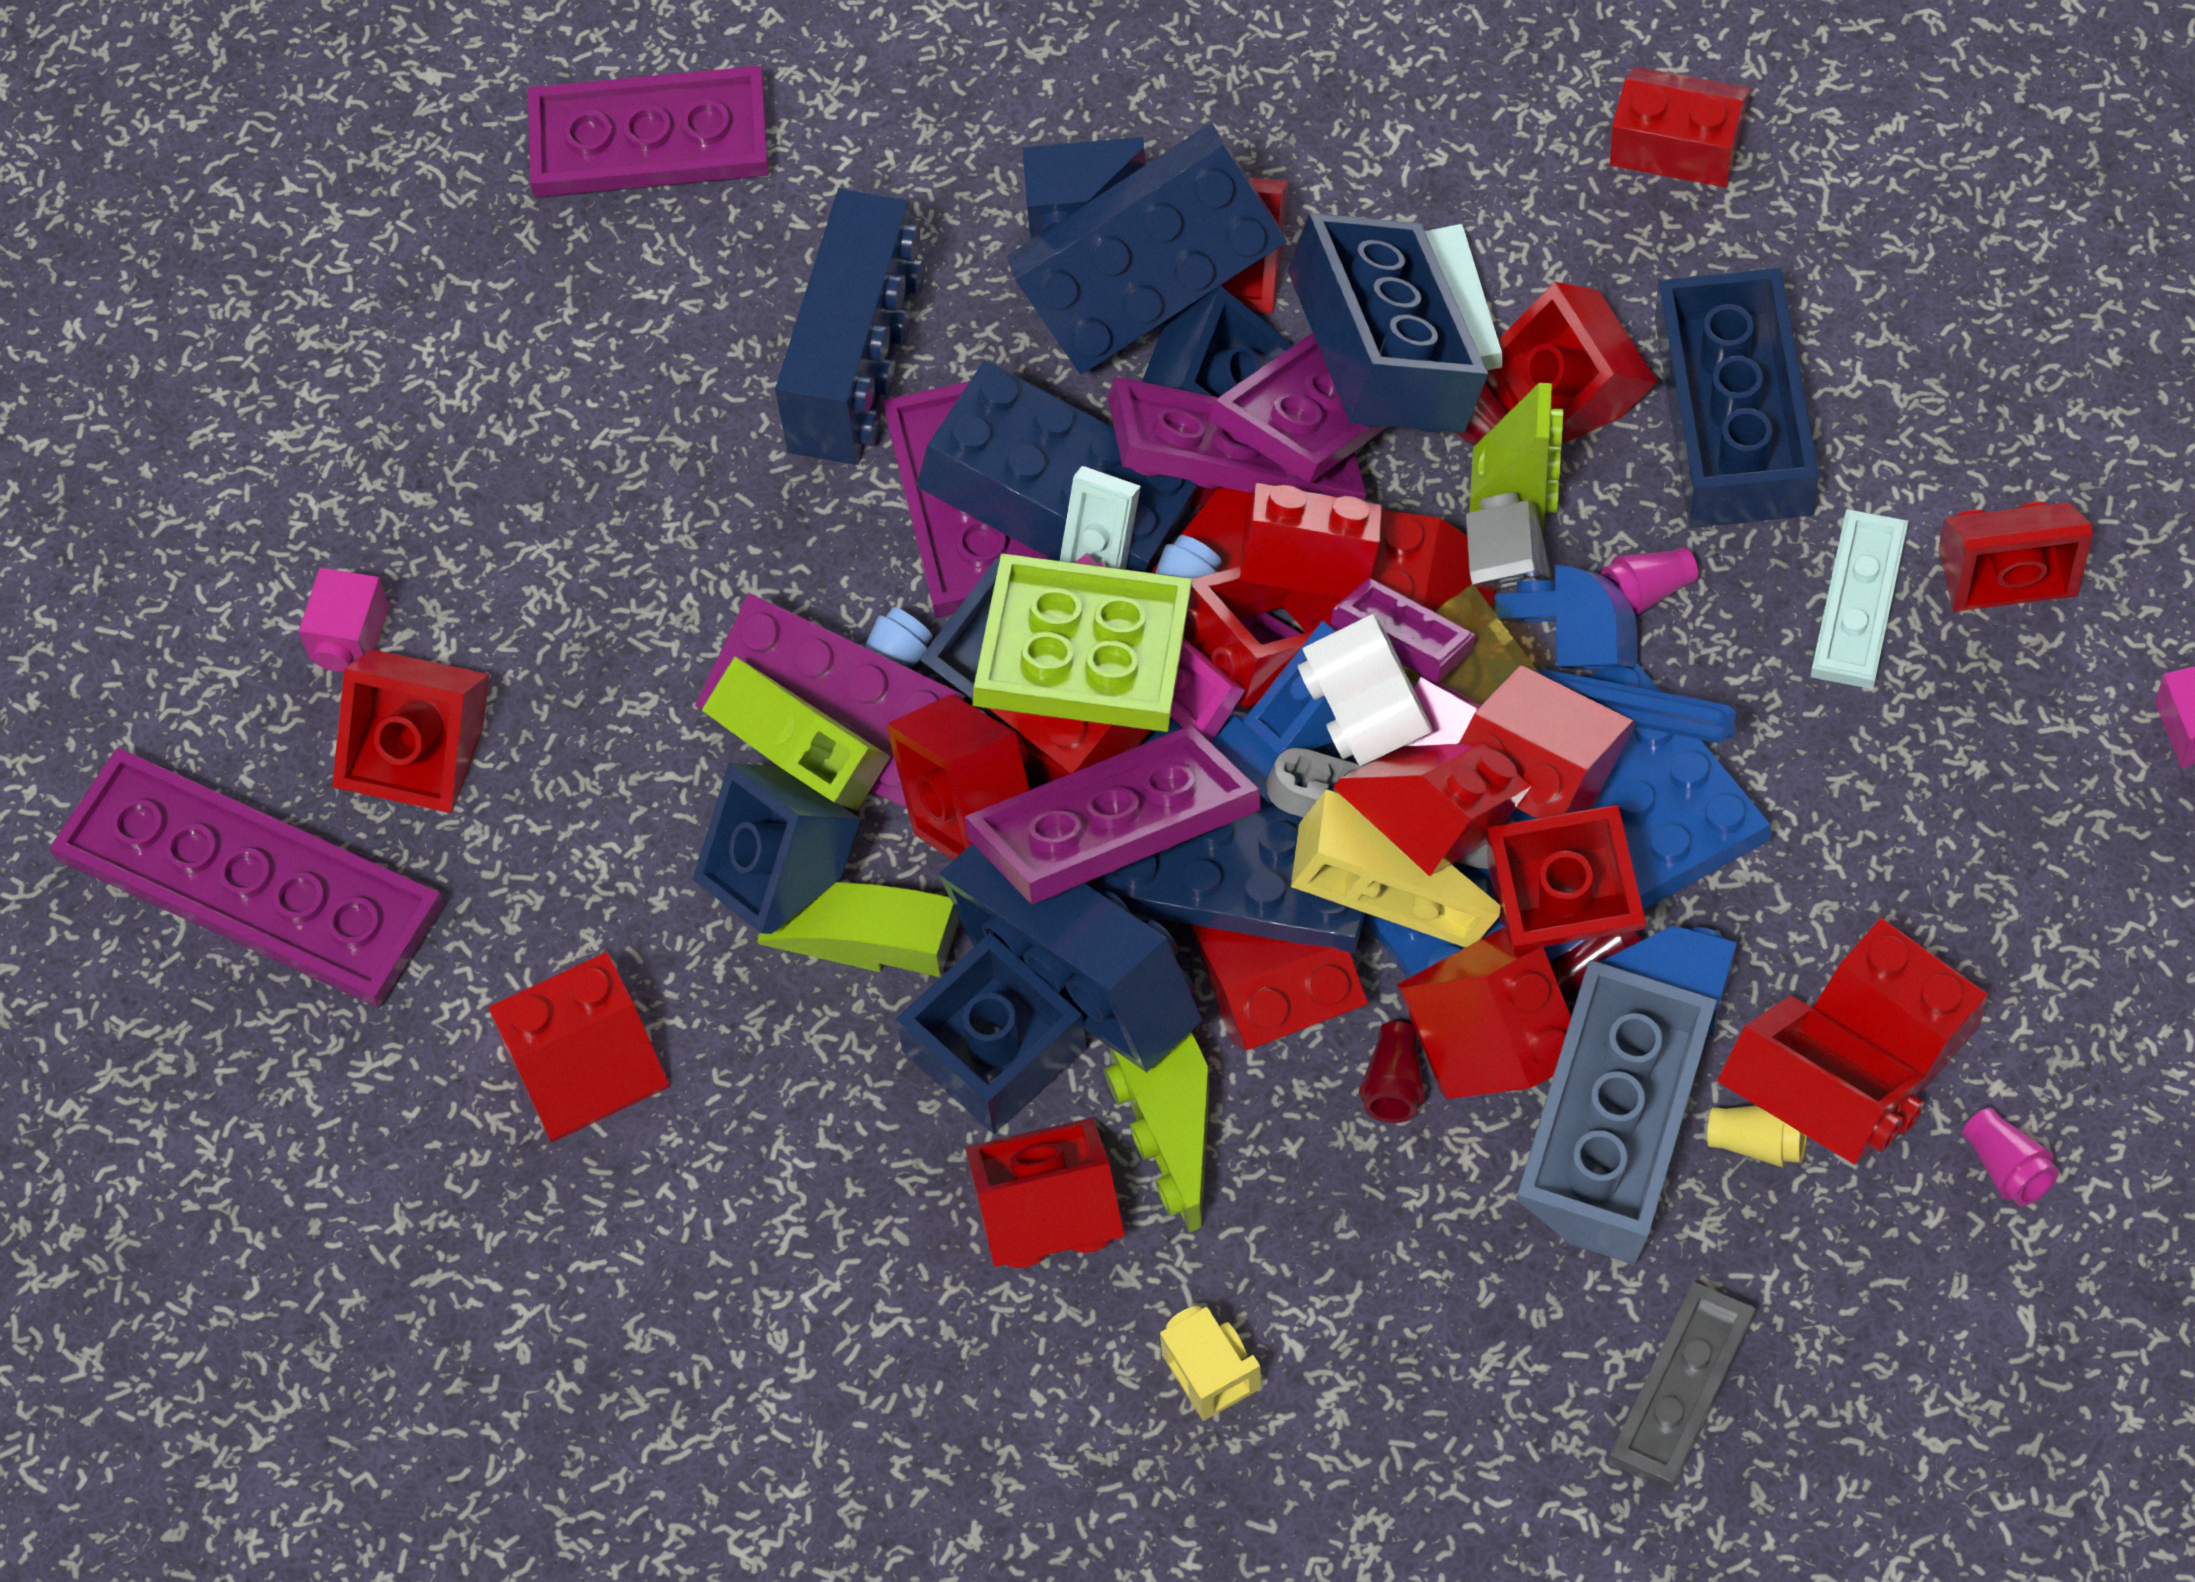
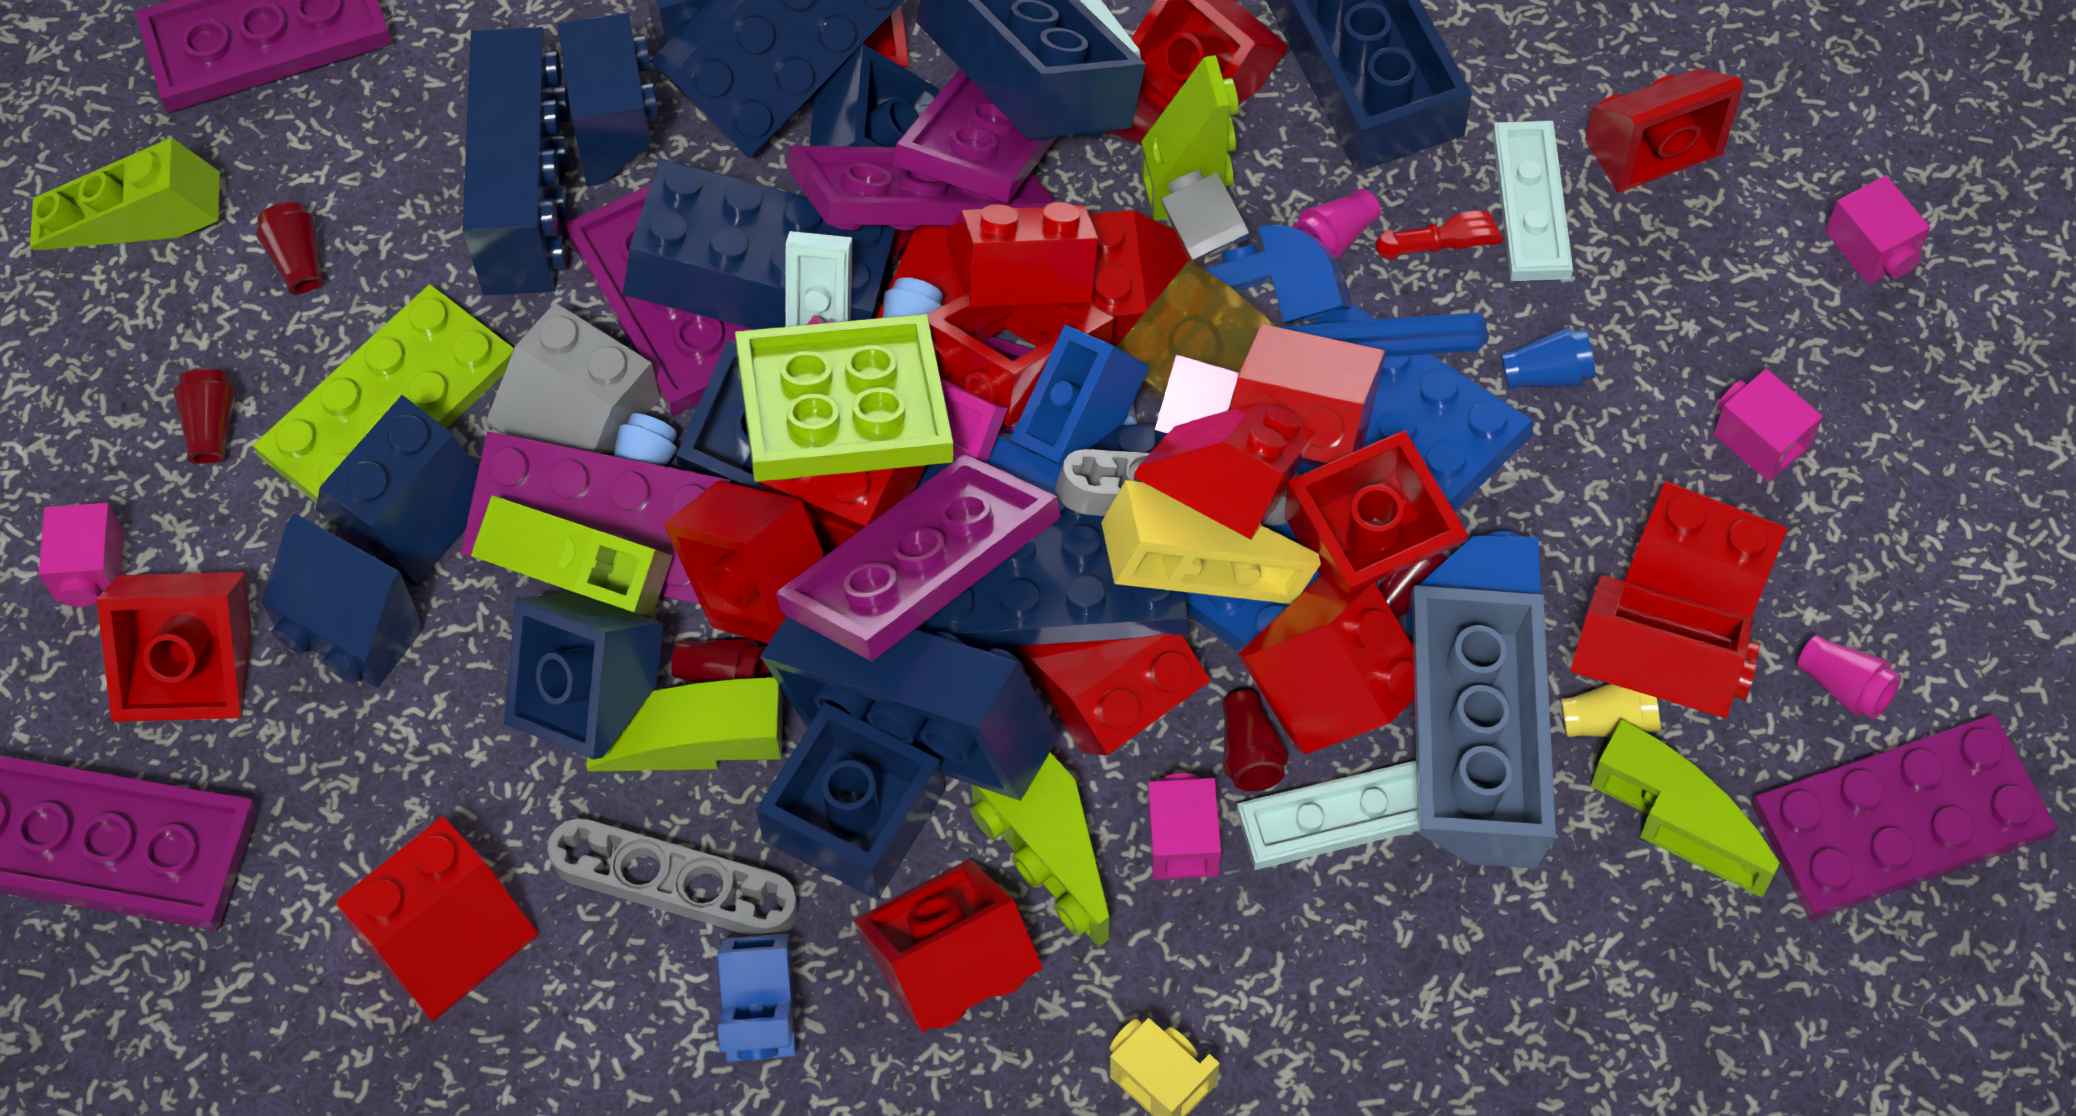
camera: 20 degrees left, 0 degrees up
(483, 280) = (137, 198): none -> lime slope
(492, 508) = (205, 413): none -> dark red cone
(567, 728) = (339, 604): none -> dark blue slope
(617, 359) = (291, 243): none -> dark red cone
(655, 631) = (402, 491): none -> dark blue slope
(666, 539) = (424, 352): none -> lime plate
(813, 1058) = (676, 870): none -> light grey beam
(843, 566) = (571, 385): none -> light grey slope
(850, 1196) = (756, 998): none -> blue brick
(905, 867) = (718, 660): none -> dark red cone
(956, 277) = (606, 92): none -> dark blue slope
(1301, 1138) = (1183, 827): none -> dark pink brick
(1365, 690) = (1131, 378): white brick -> none
(1418, 635) = (1141, 316): magenta plate -> none
(1444, 1163) = (1330, 815): none -> light aqua tile
(1682, 1386) = (1623, 975): flat silver plate -> none
(1773, 614) = (1459, 232): none -> red piece
(1792, 1242) = (1684, 809): none -> lime slope
(1818, 769) = (1551, 361): none -> blue cone
(2014, 885) = (1766, 424): none -> dark pink brick
(2016, 1307) = (1903, 817): none -> magenta plate

